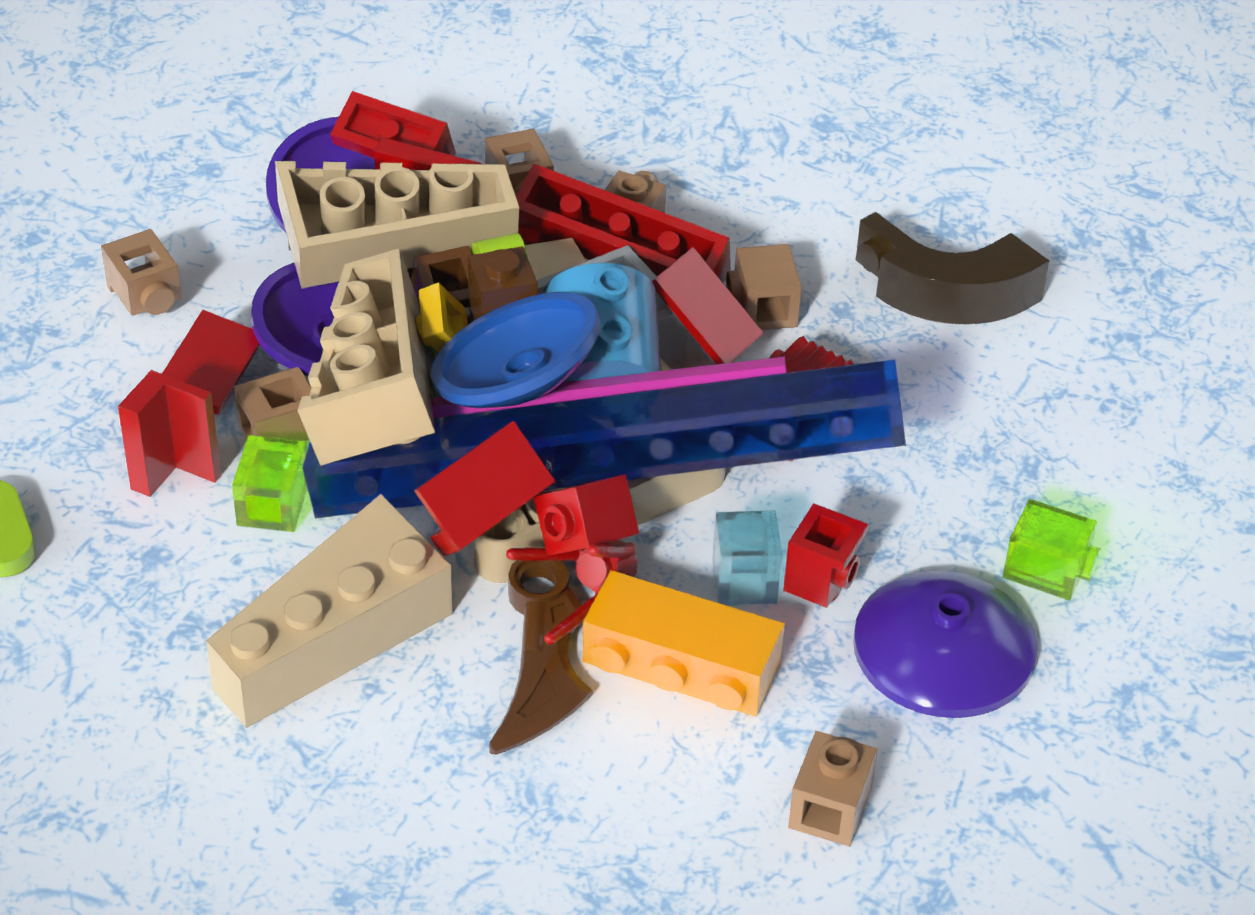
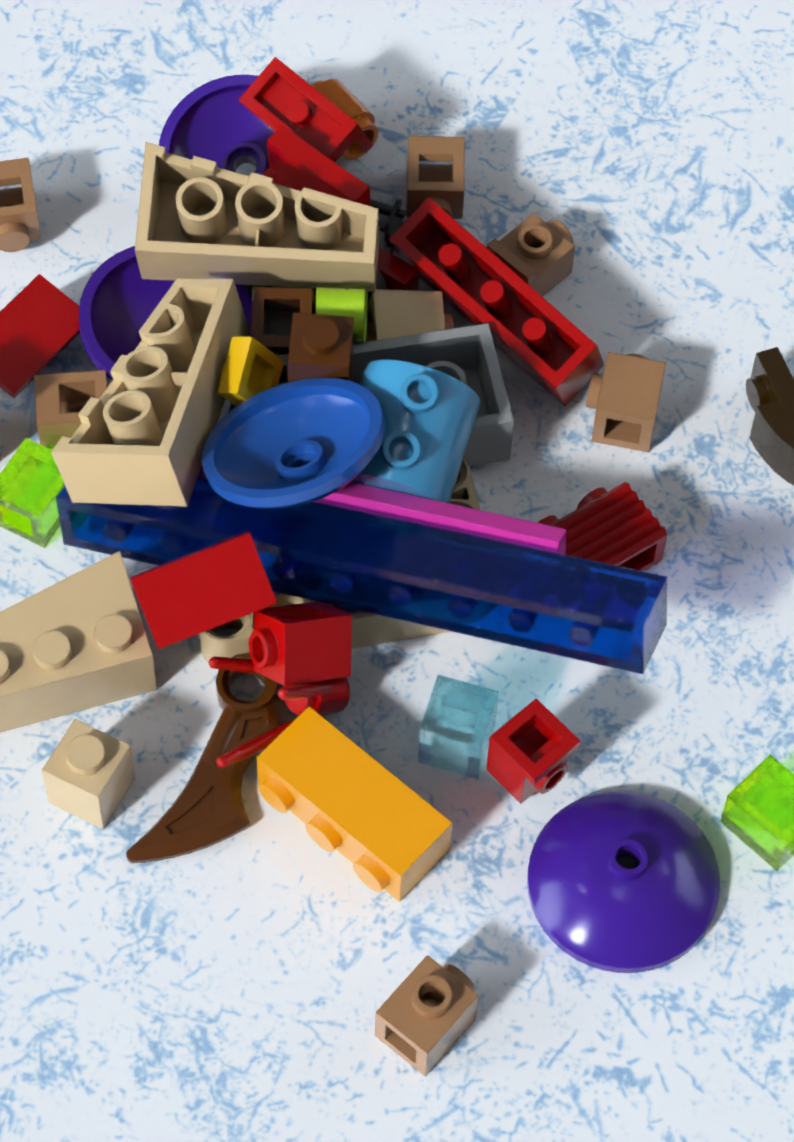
camera: 20 degrees right, 15 degrees up
(428, 684) = (88, 773): none -> tan brick
(706, 308) = (535, 424): panel -> none

